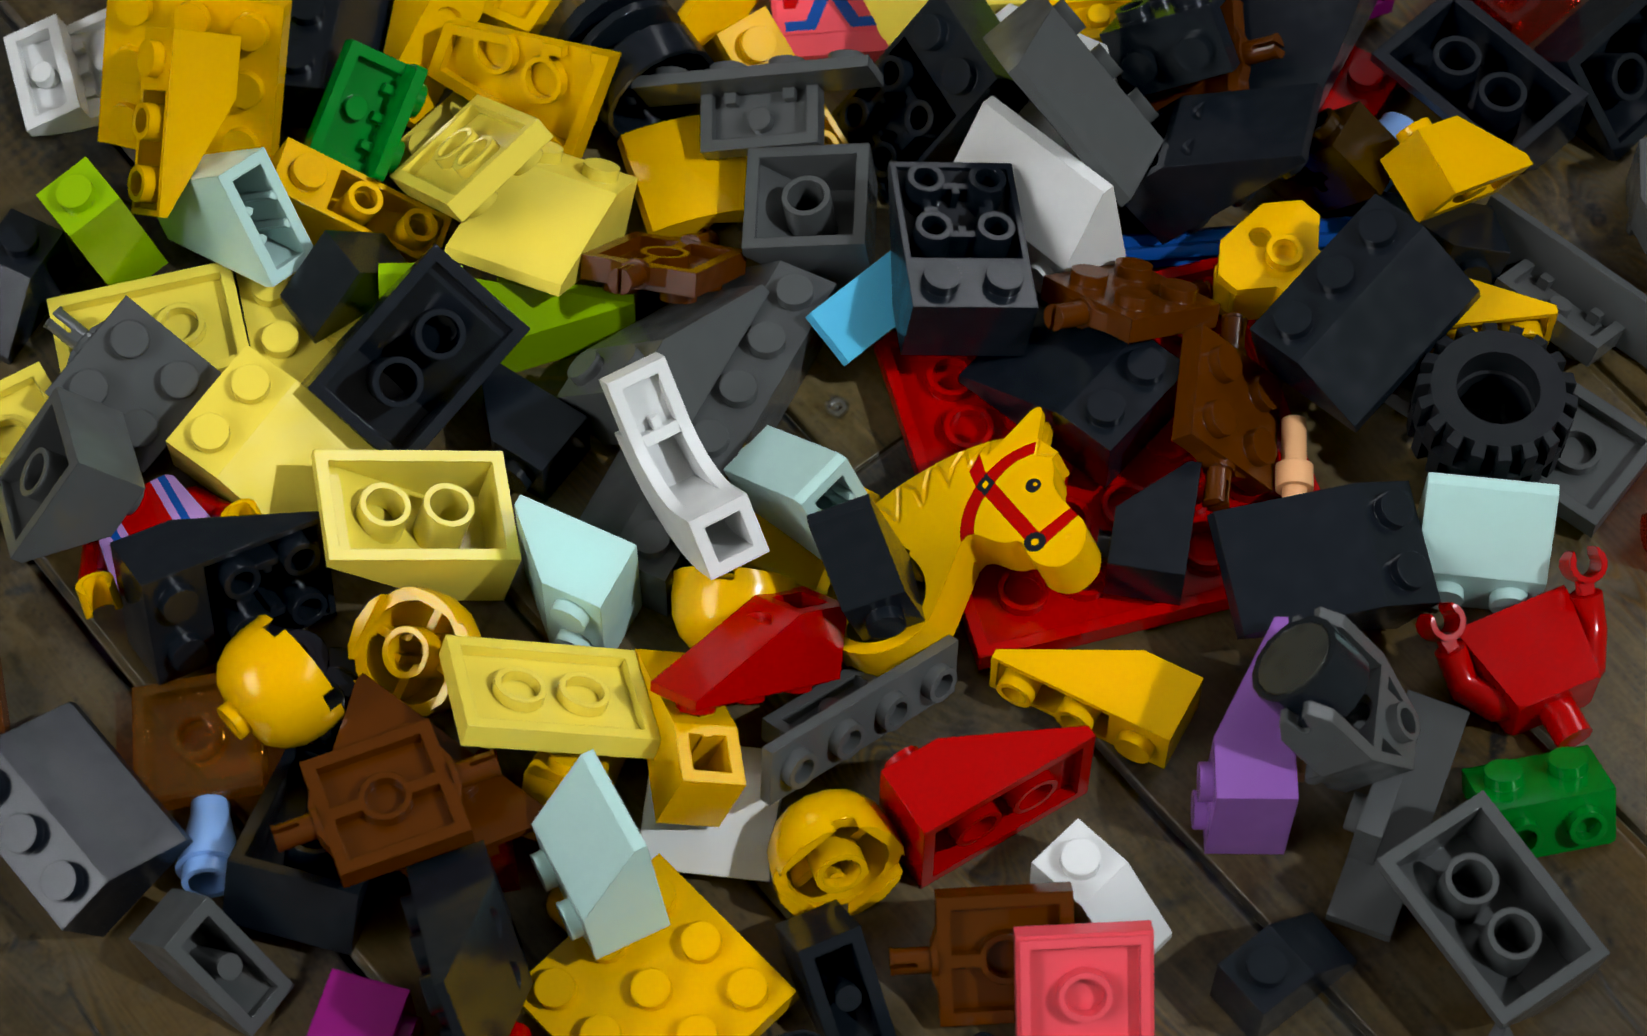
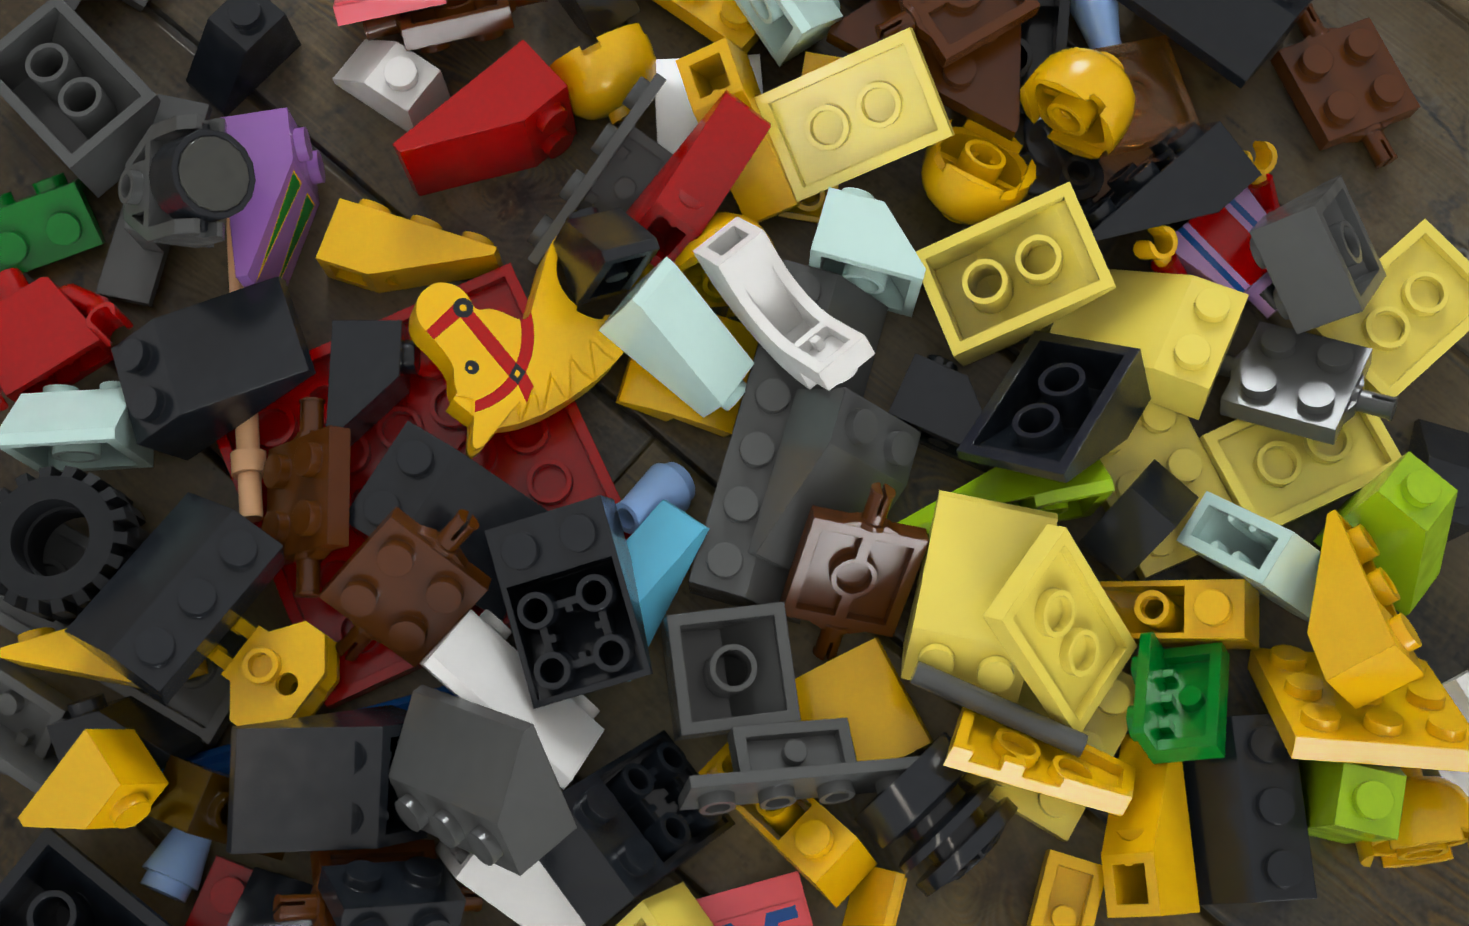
camera: 170 degrees right, 15 degrees up
(554, 119) = (999, 709): none -> dark grey bar
(856, 389) = (659, 483): none -> light blue cone

